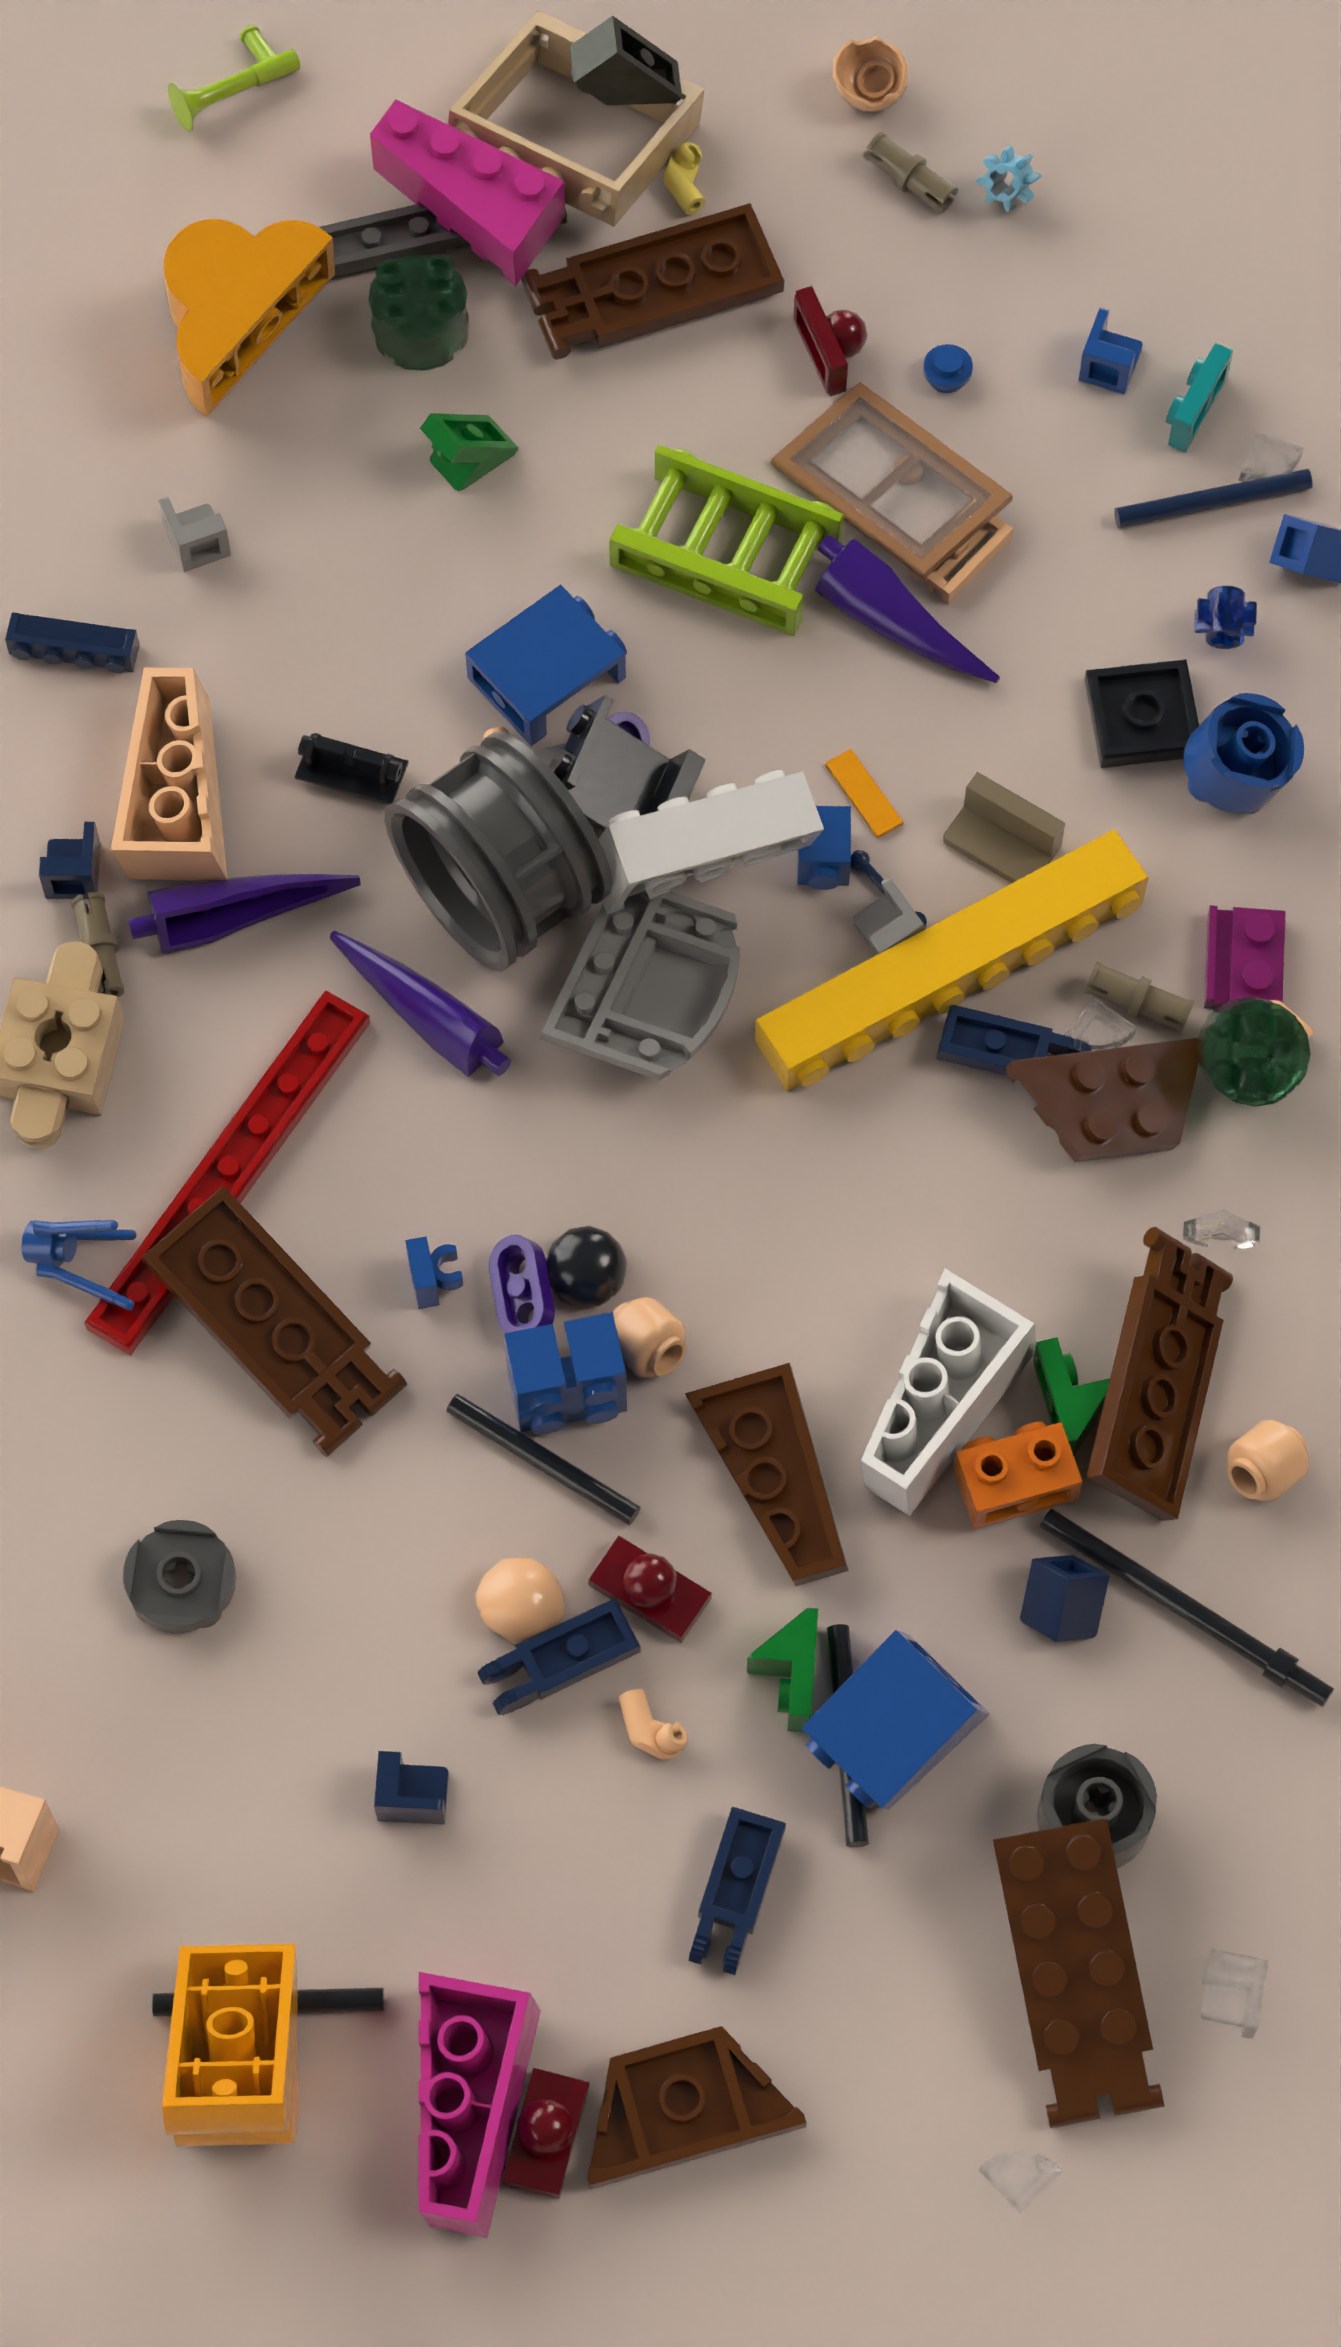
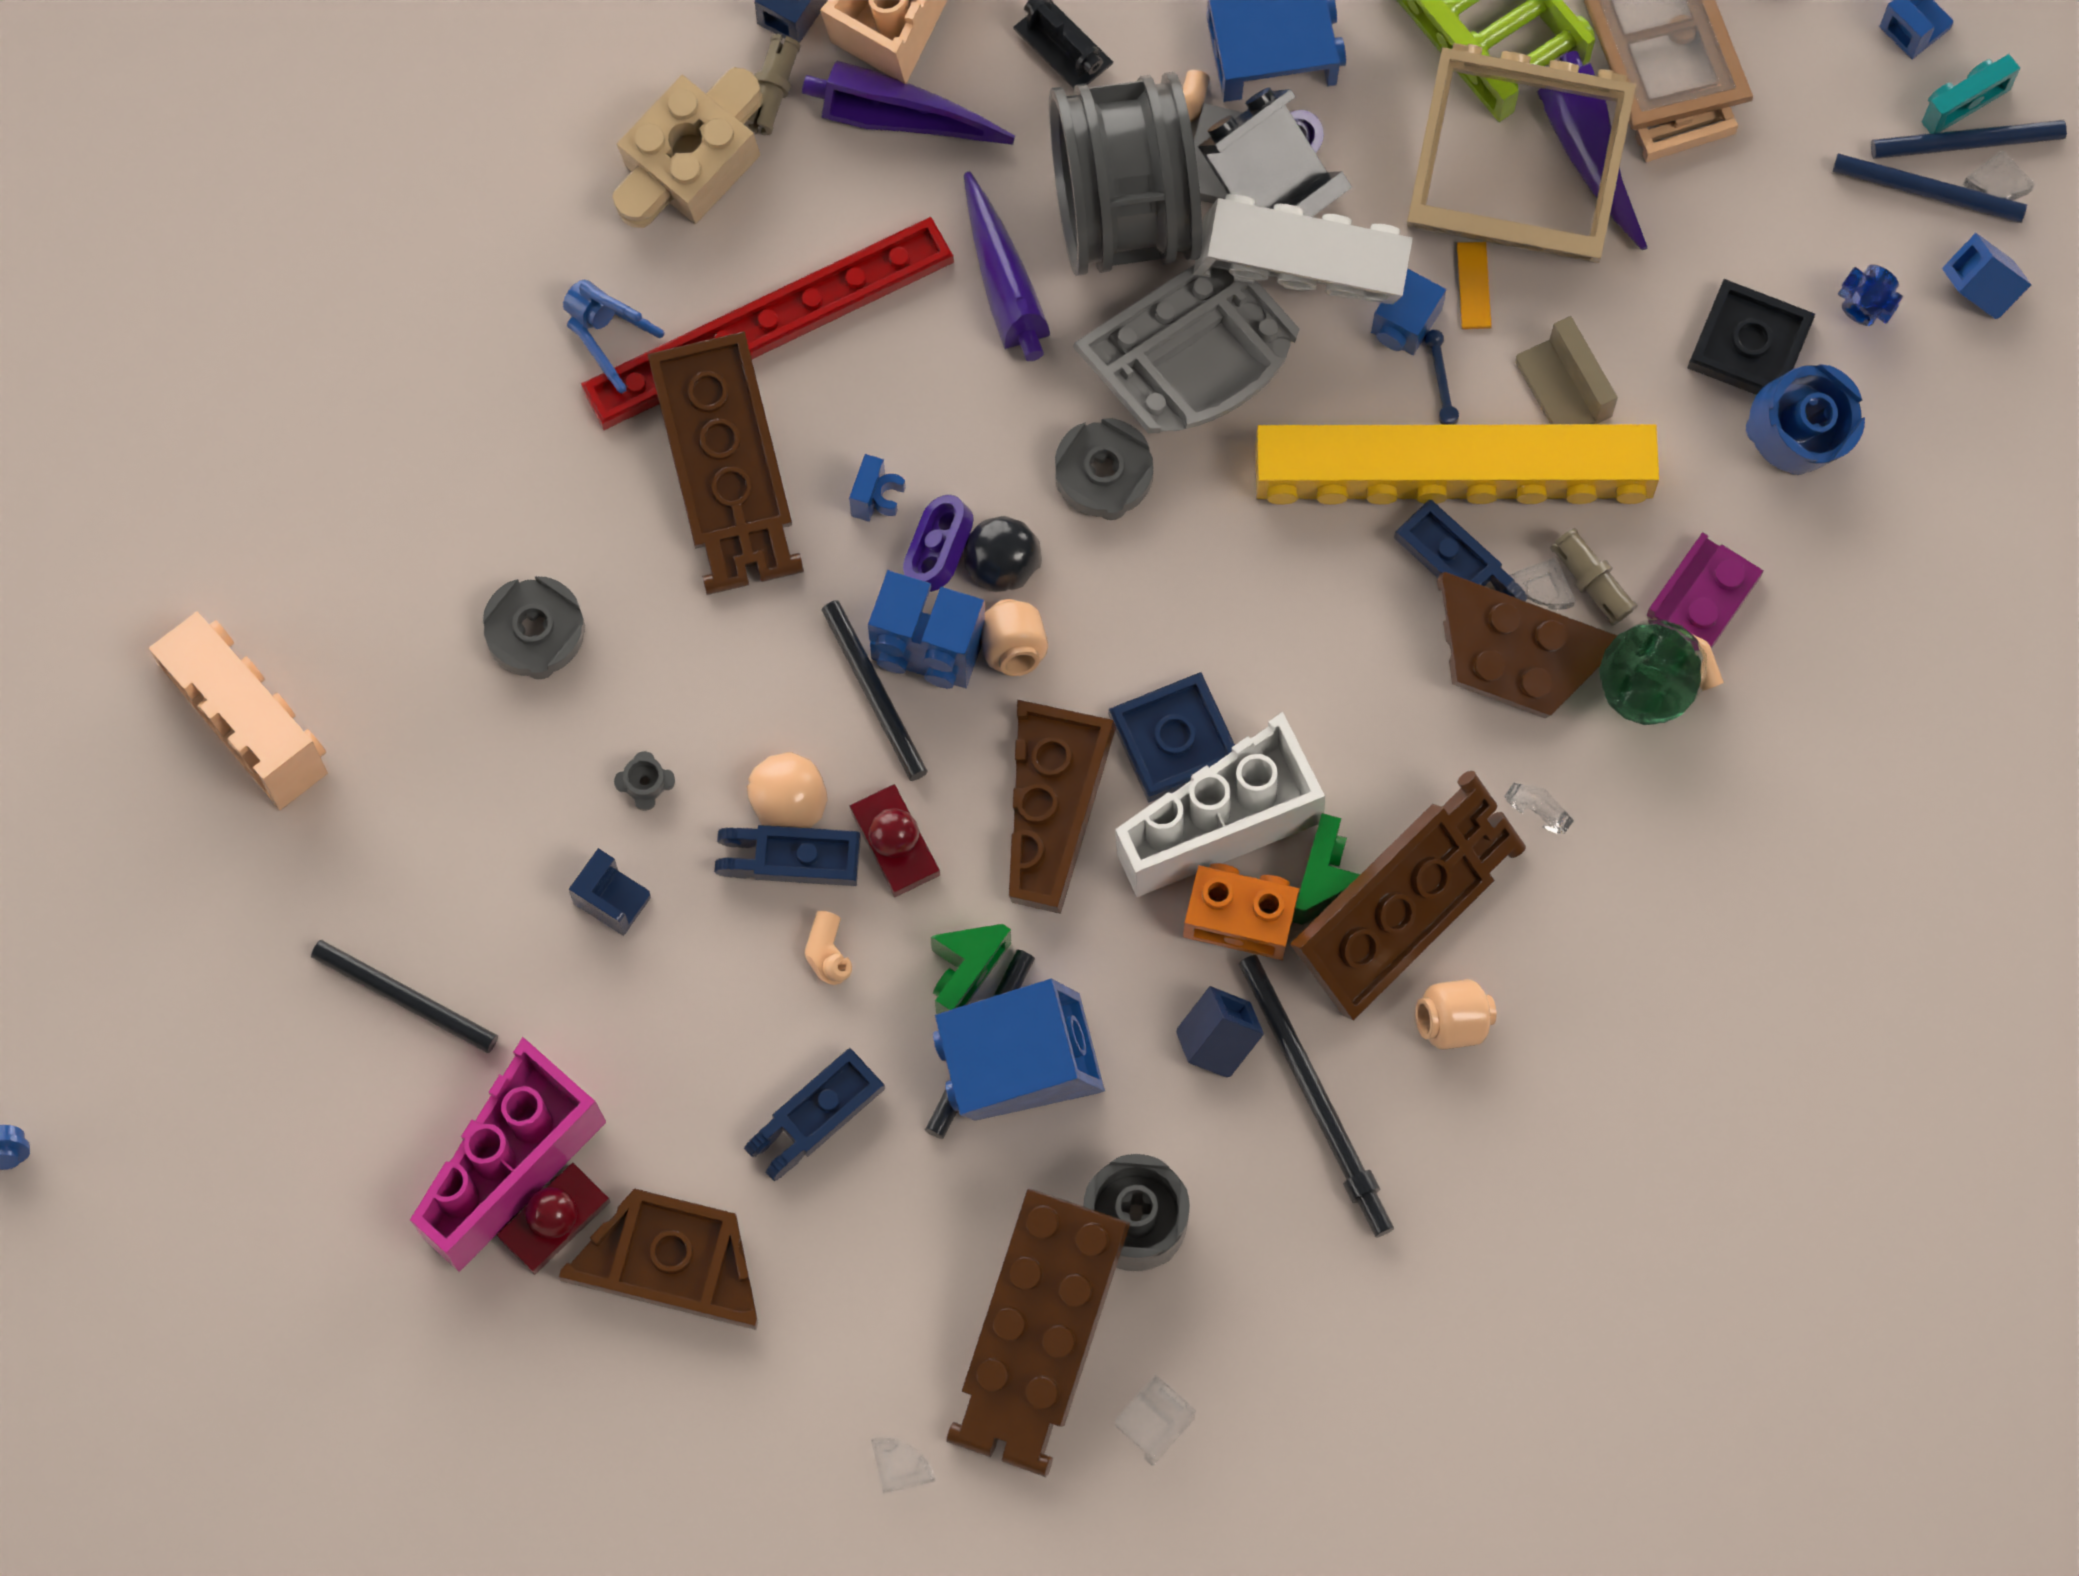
camera: 30 degrees right, 5 degrees up
(233, 2047) = (346, 1014): light orange brick -> none
(366, 1652) = (644, 766): none -> dark grey plate
(638, 1165) = (1109, 495): none -> dark grey plate
(838, 562) = (1517, 69): none -> tan window
(849, 1349) = (1171, 734): none -> dark blue tile
(888, 919) = (1423, 401): light grey panel -> none
(1219, 438) = (1968, 139): none -> dark blue bar

